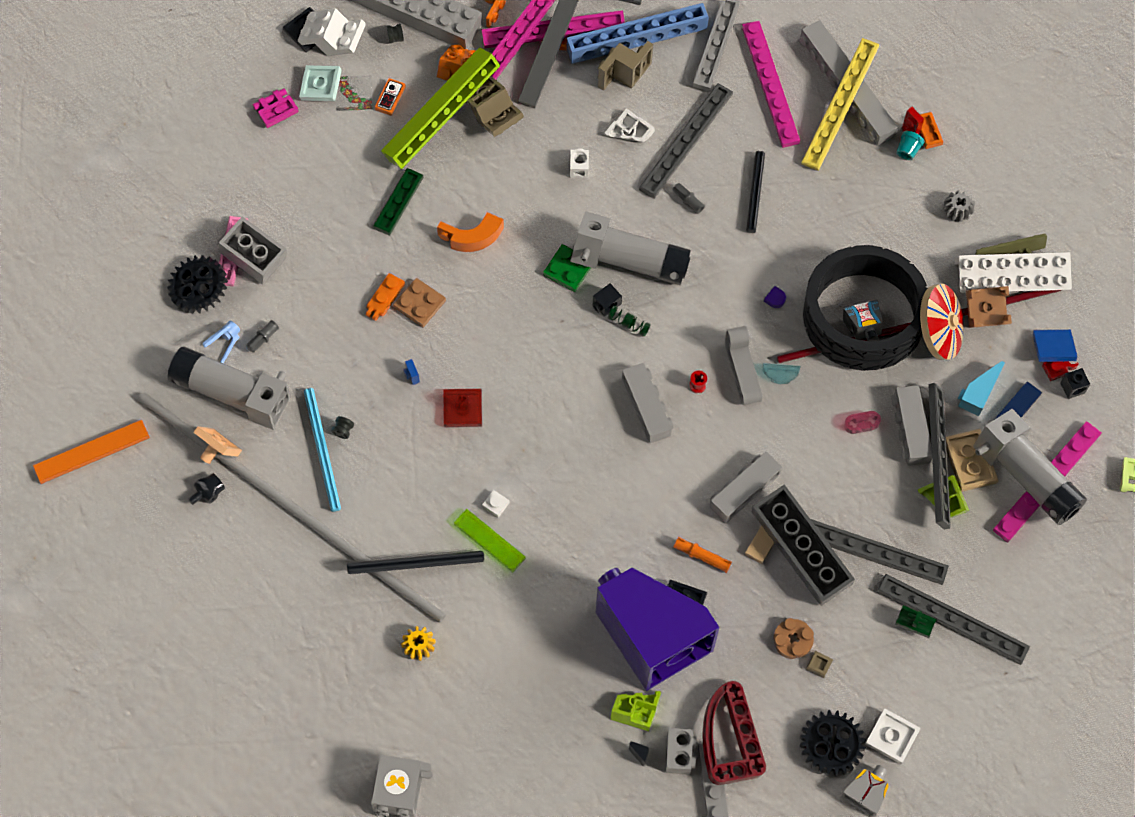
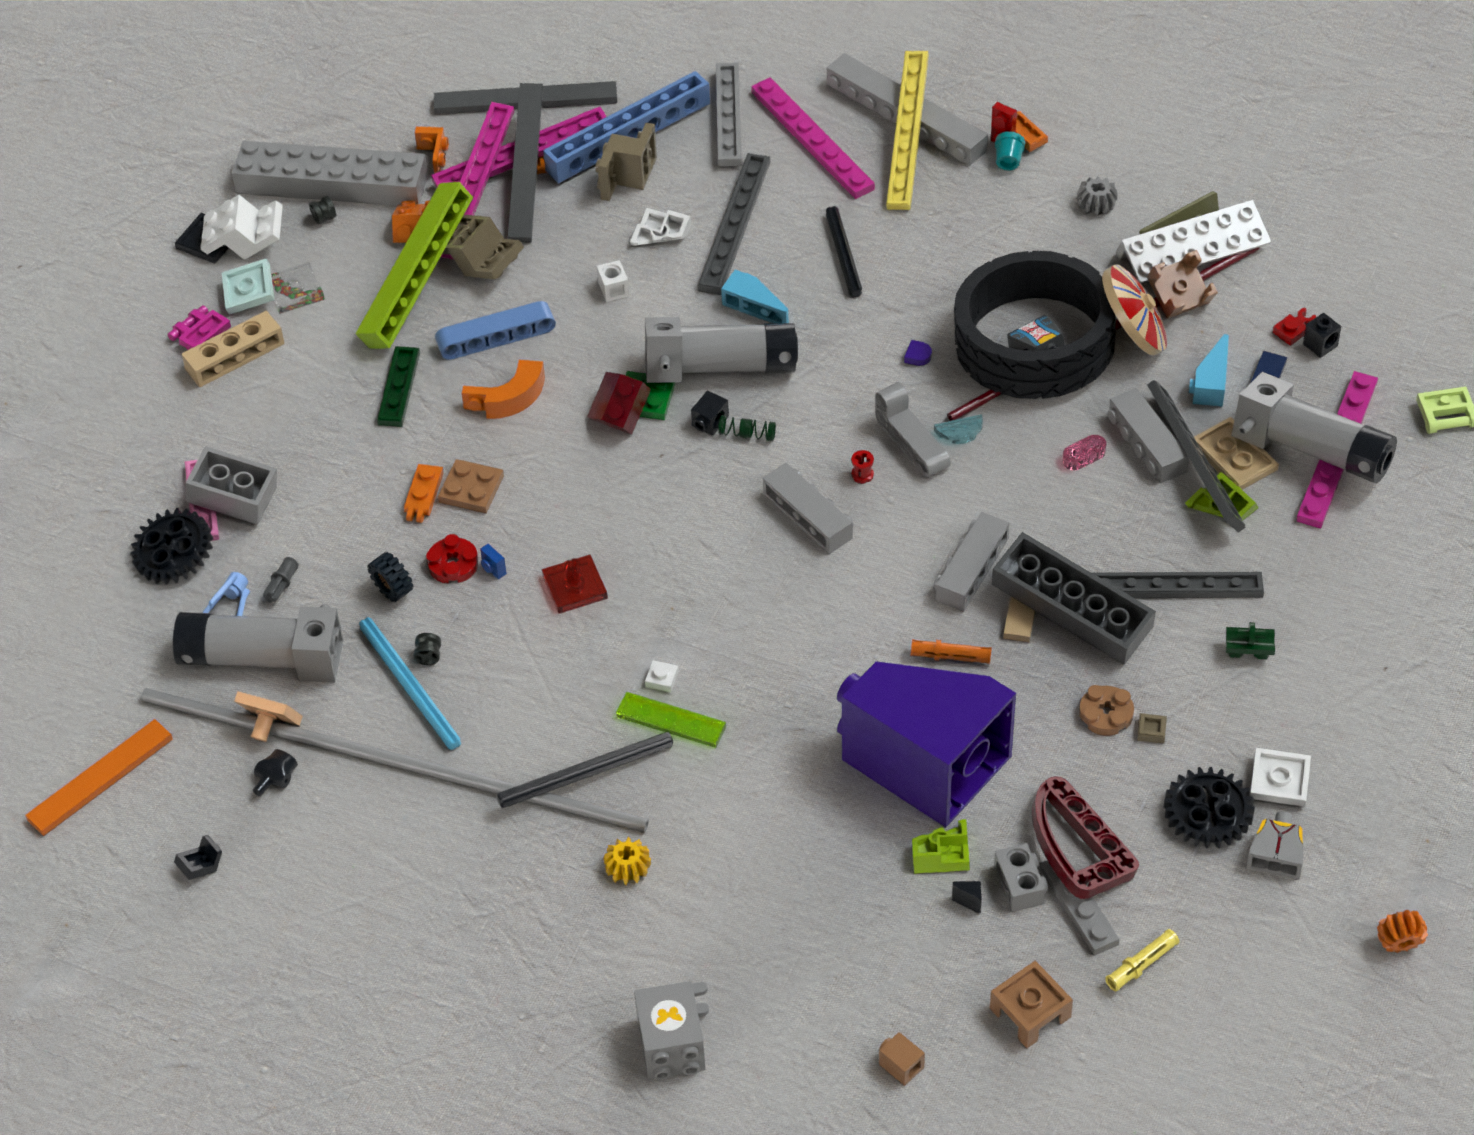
camera: 15 degrees left, 15 degrees down
(135, 541) = (200, 860): none -> black bracket
(287, 139) = (233, 348): none -> tan brick
(336, 362) = (390, 576): none -> black bush
(383, 369) = (448, 548): none -> red plate
(390, 96) = (342, 279): tile -> none
(481, 178) = (495, 330): none -> medium blue beam
(544, 271) = (619, 402): none -> dark red slope
(672, 210) = (753, 298): none -> medium azure slope
(688, 198) = (770, 281): dark grey axle -> none
(954, 619) = (1298, 628): dark grey tile -> none
(1054, 345) = (1279, 304): blue tile -> none

